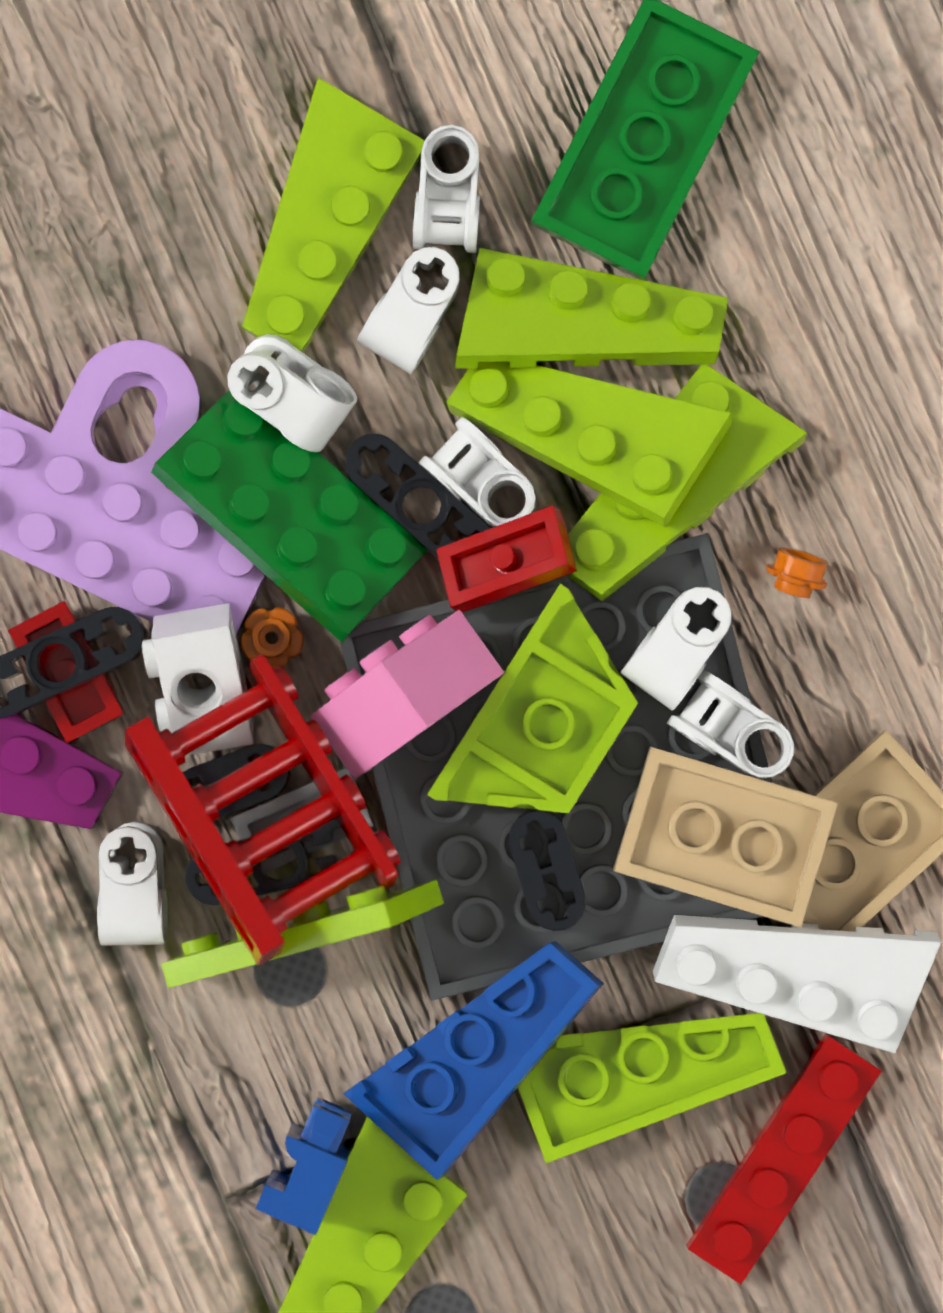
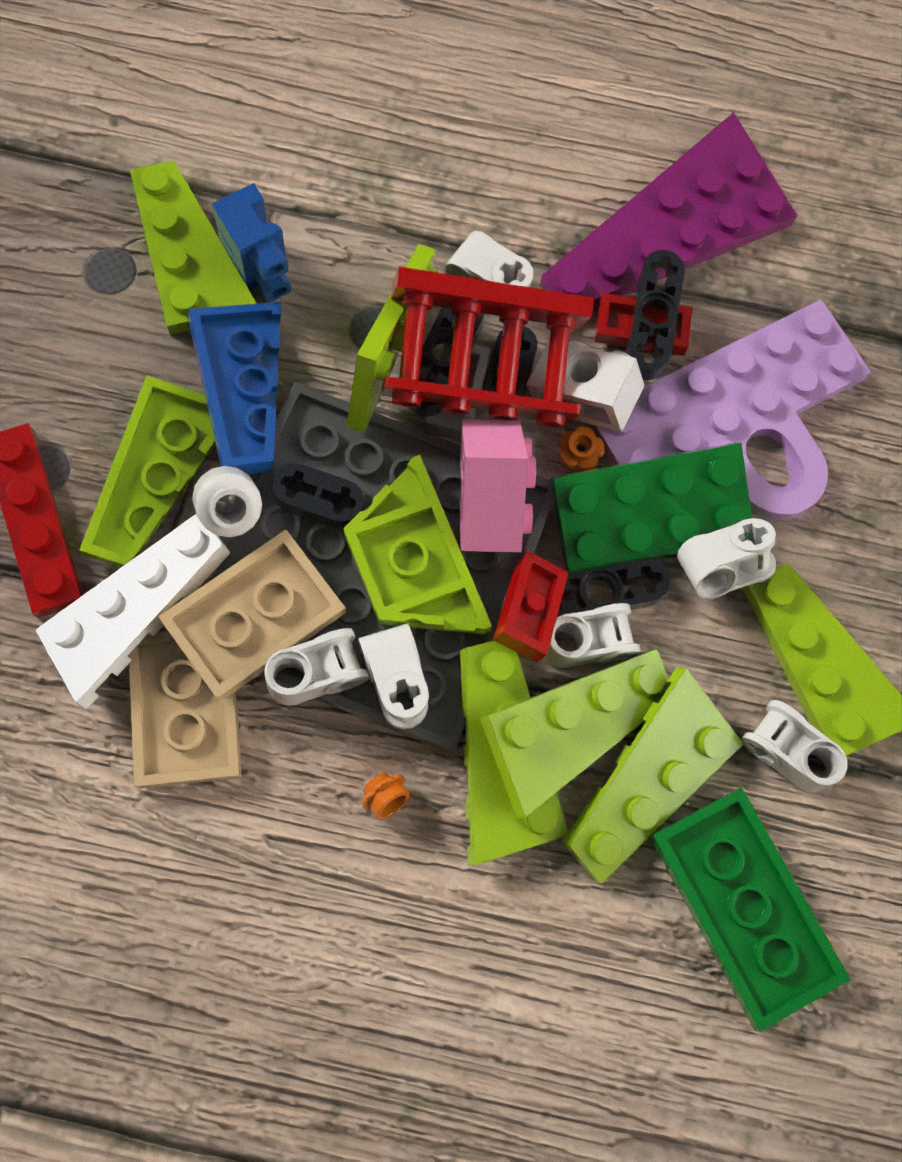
camera: 115 degrees right, 15 degrees down
(406, 318) = (728, 666): white piece -> none
(632, 953) = (233, 516): none -> white head

